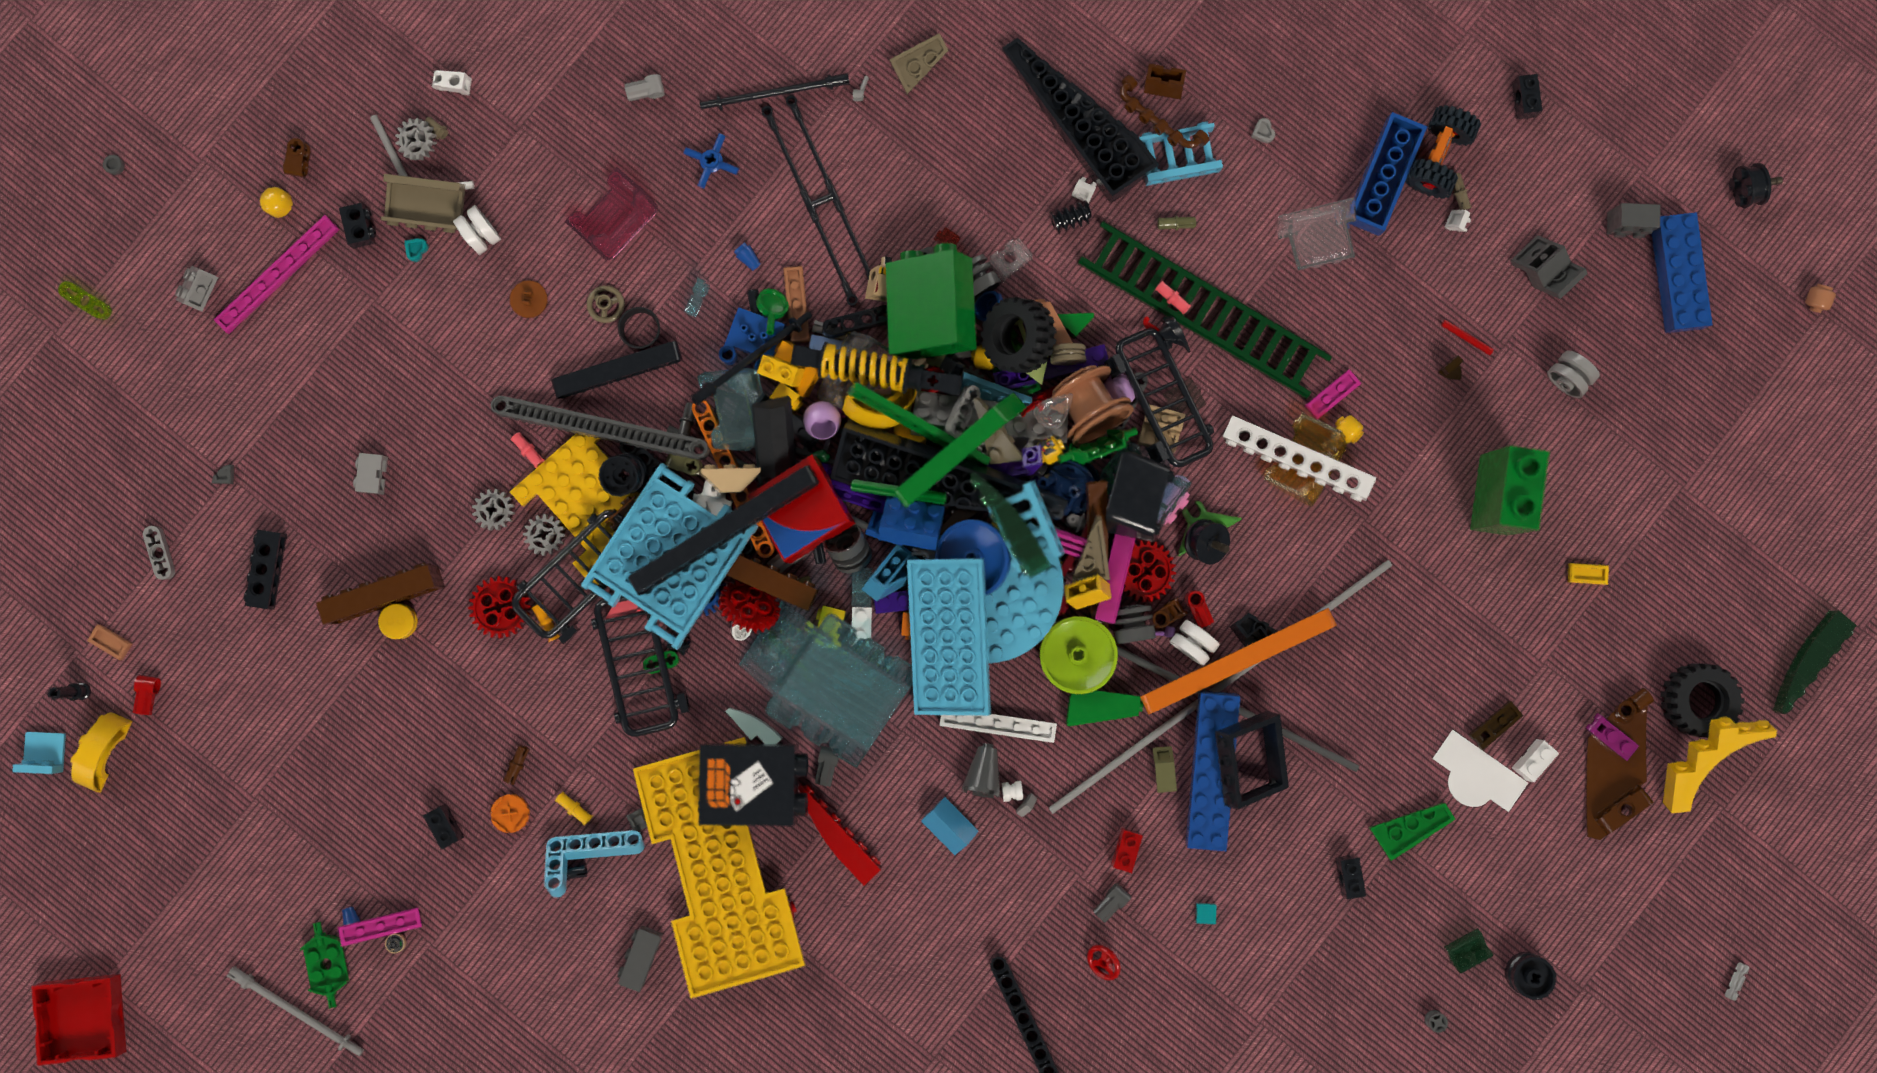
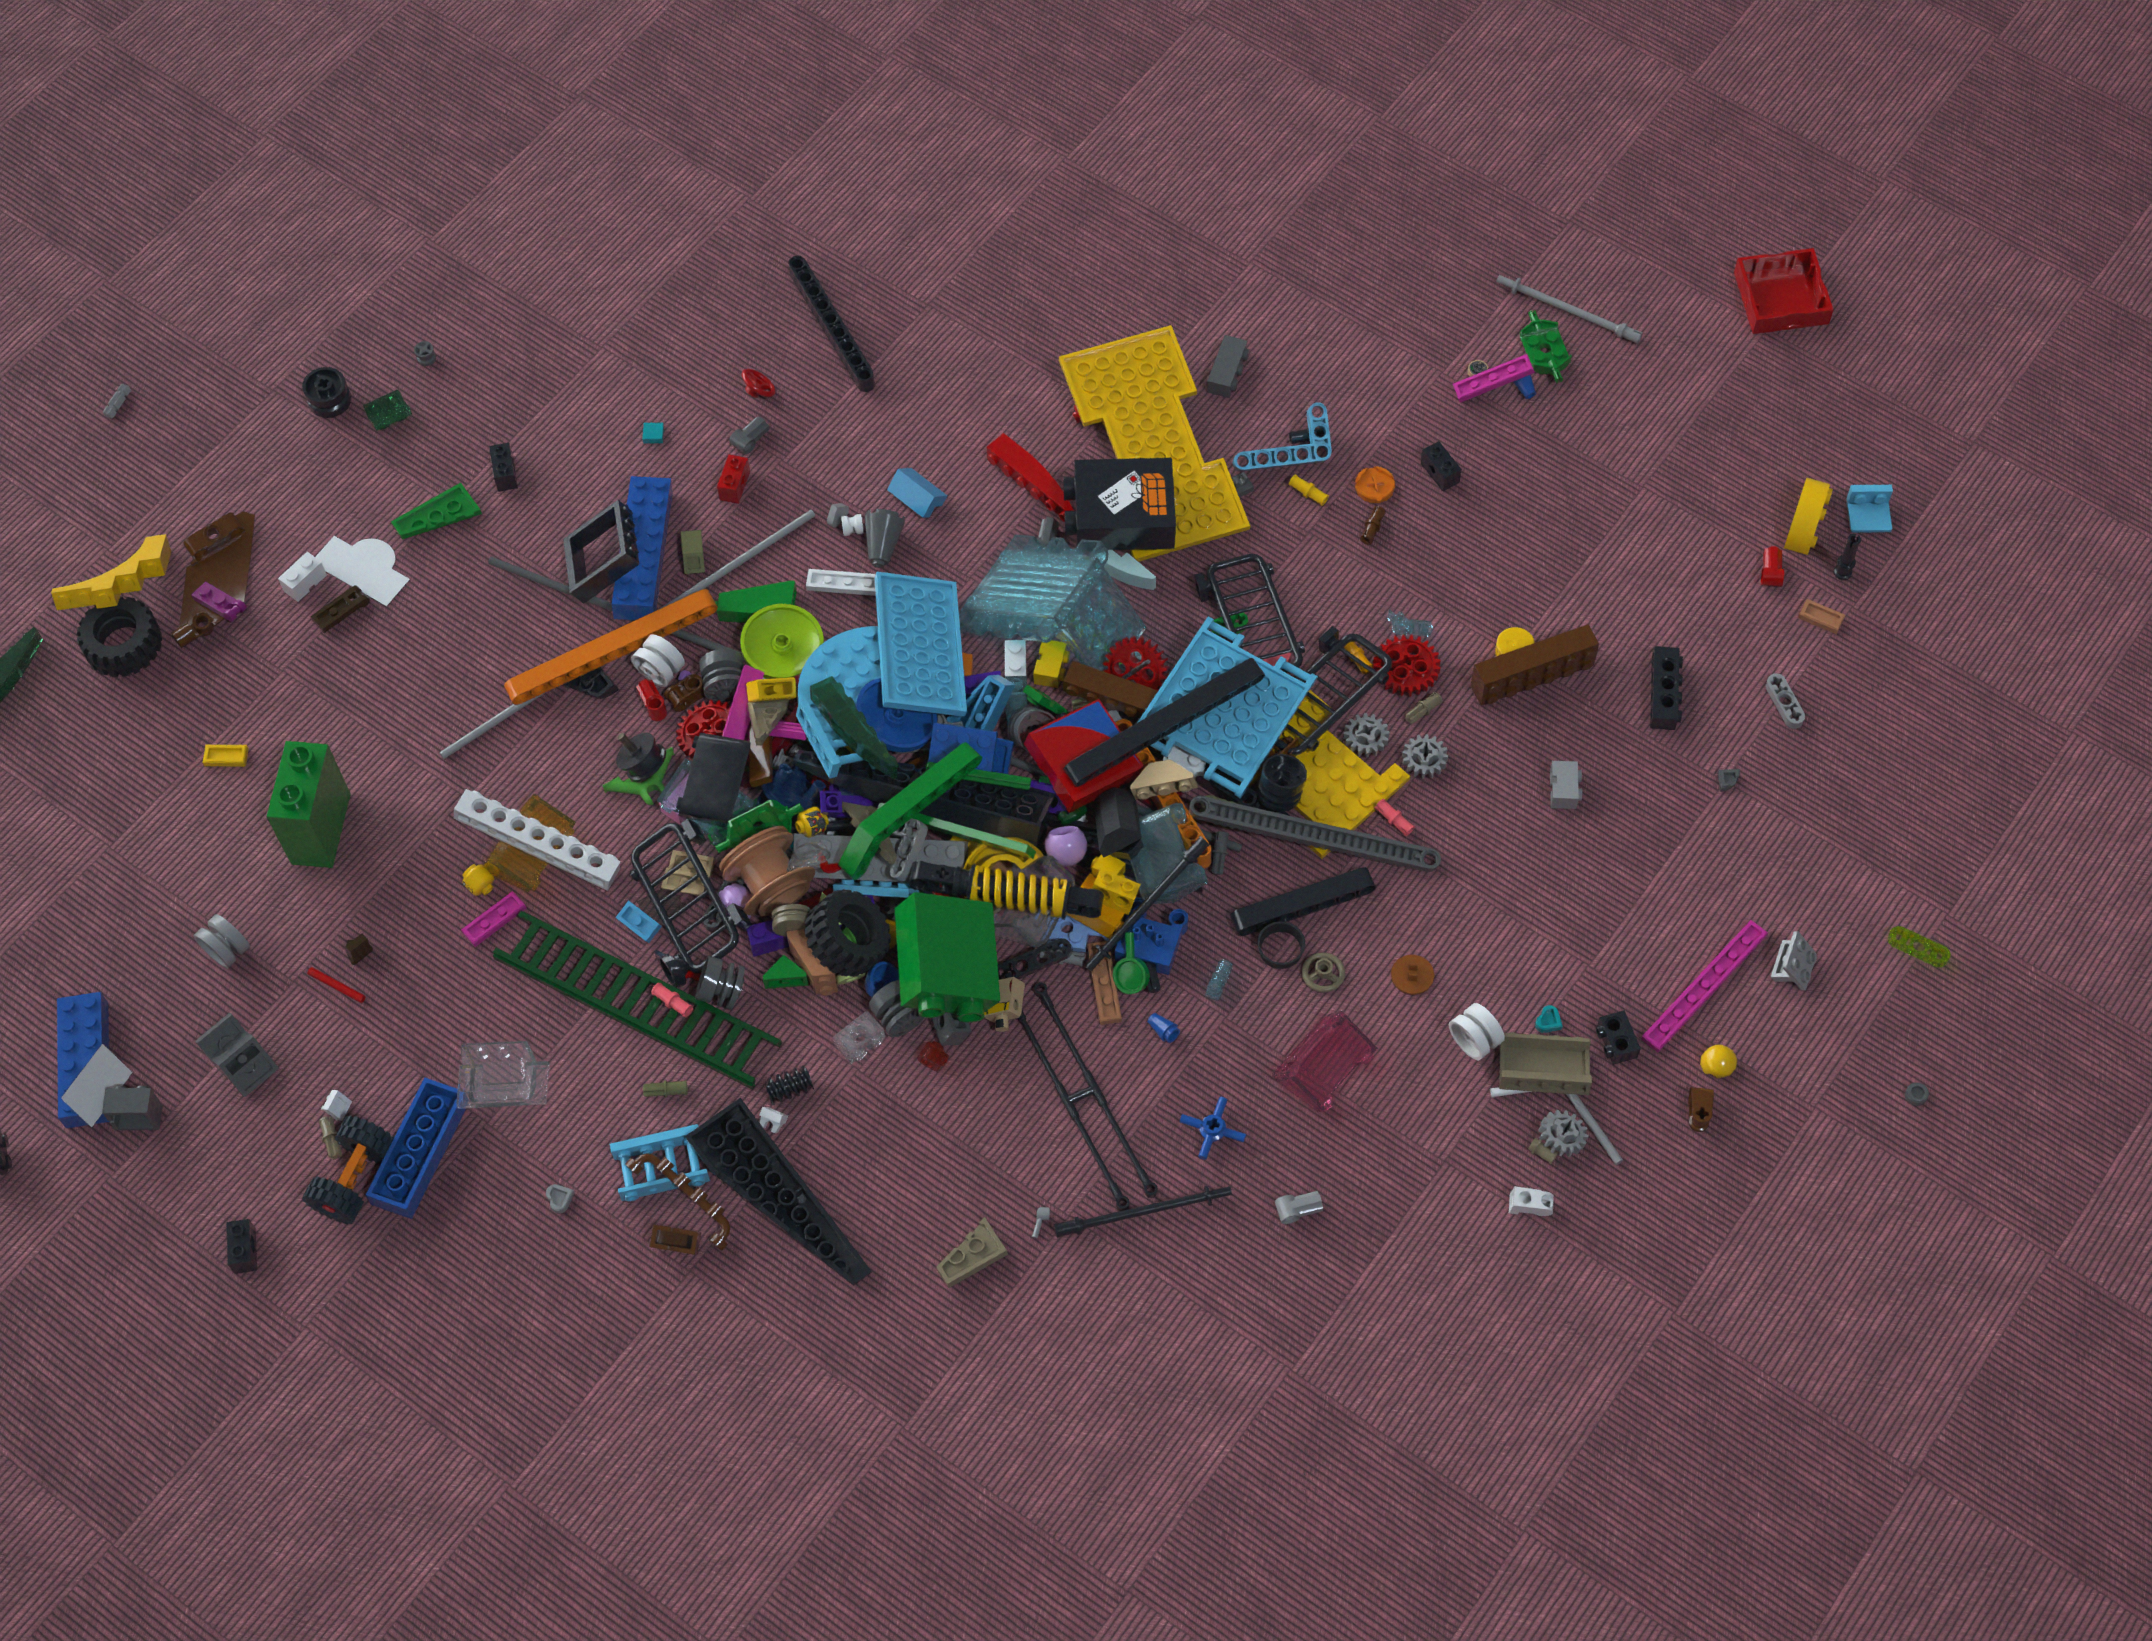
camera: 175 degrees left, 25 degrees down
(489, 561) = (1423, 708): none -> dark tan axle
(498, 647) = (1403, 625): none -> clear light blue bar
(835, 582) = (1039, 698): none -> green wing
(1131, 308) = (720, 982): none -> dark grey wheel
(1204, 381) = (638, 921): none -> dark azure plate
(1667, 241) = (89, 1088): none -> white sticker

